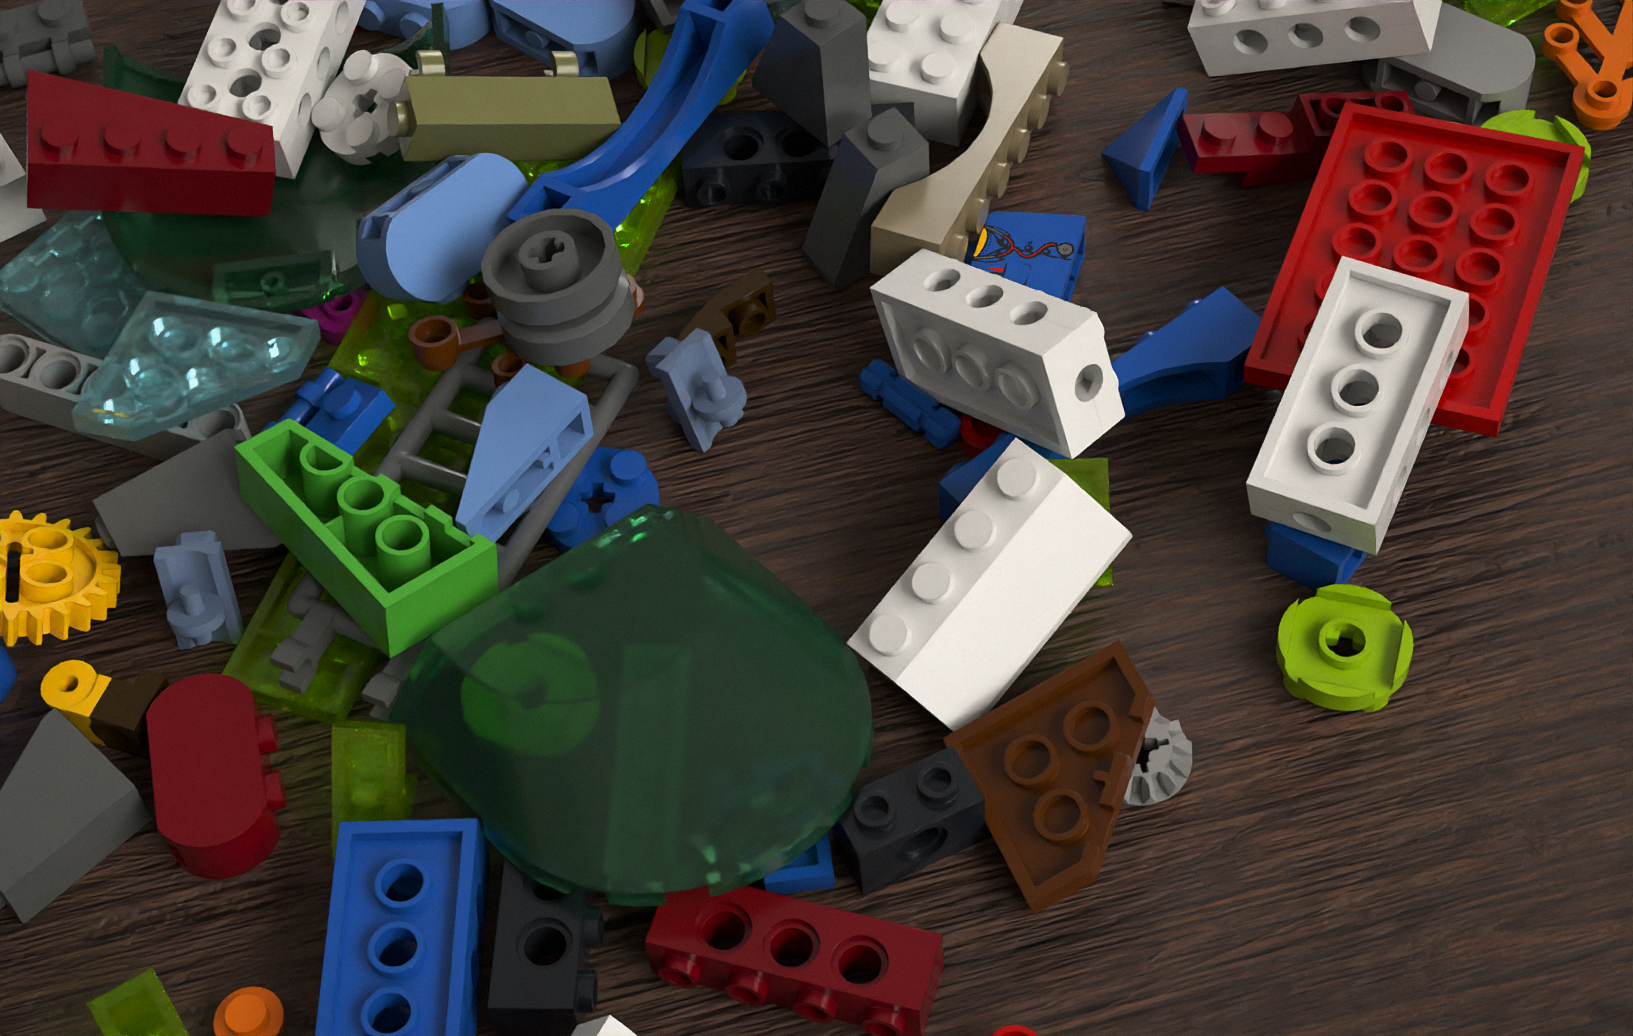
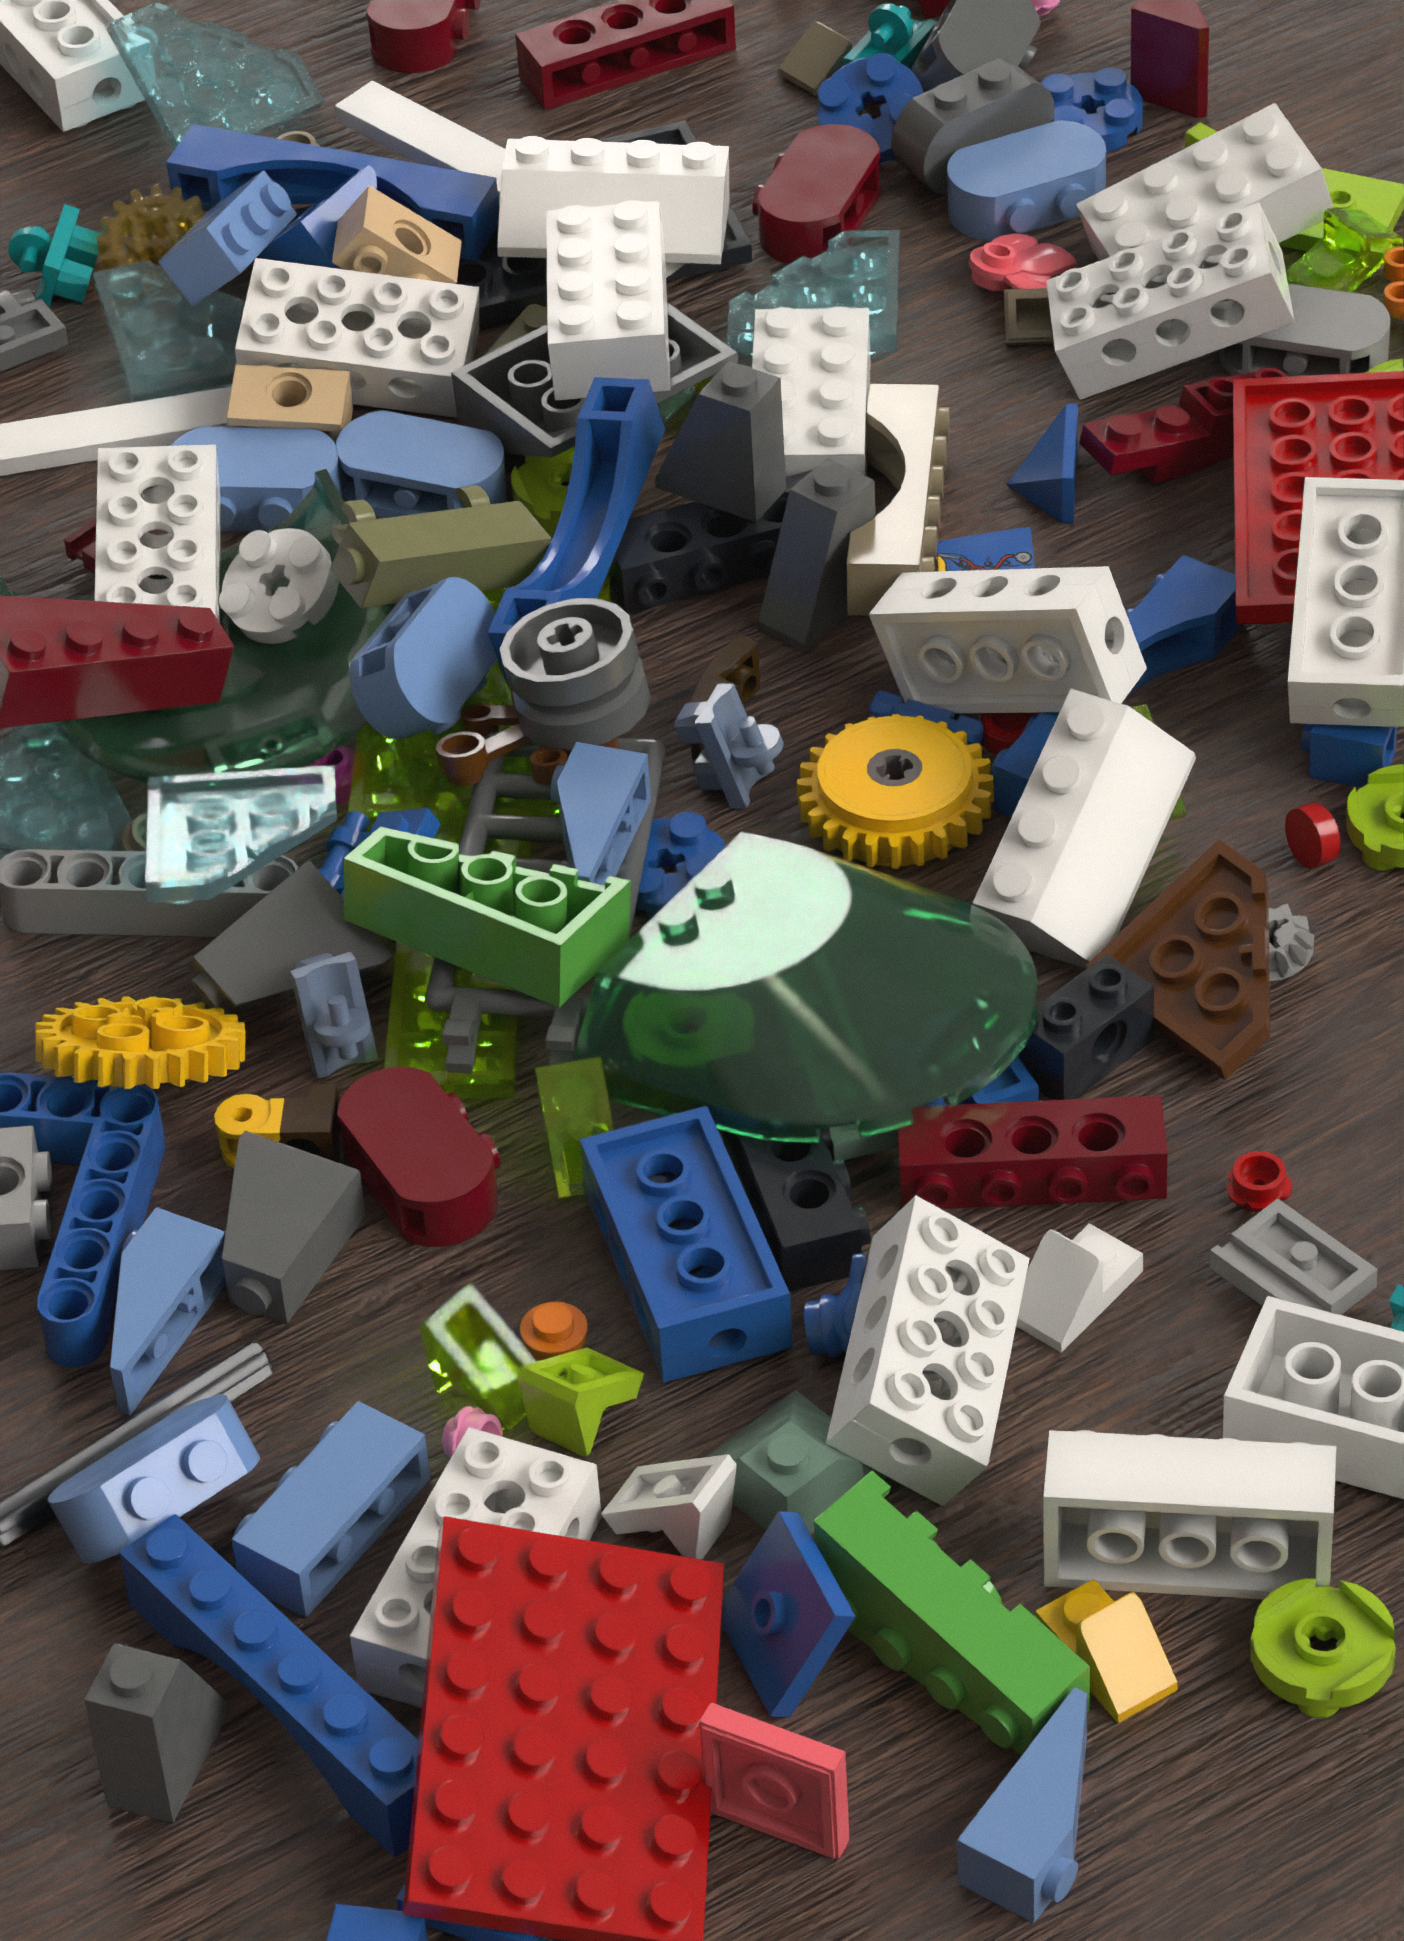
camera: 20 degrees left, 10 degrees down
(843, 478) = (895, 791): none -> yellow gear
(1235, 643) = (1312, 835): none -> red tile

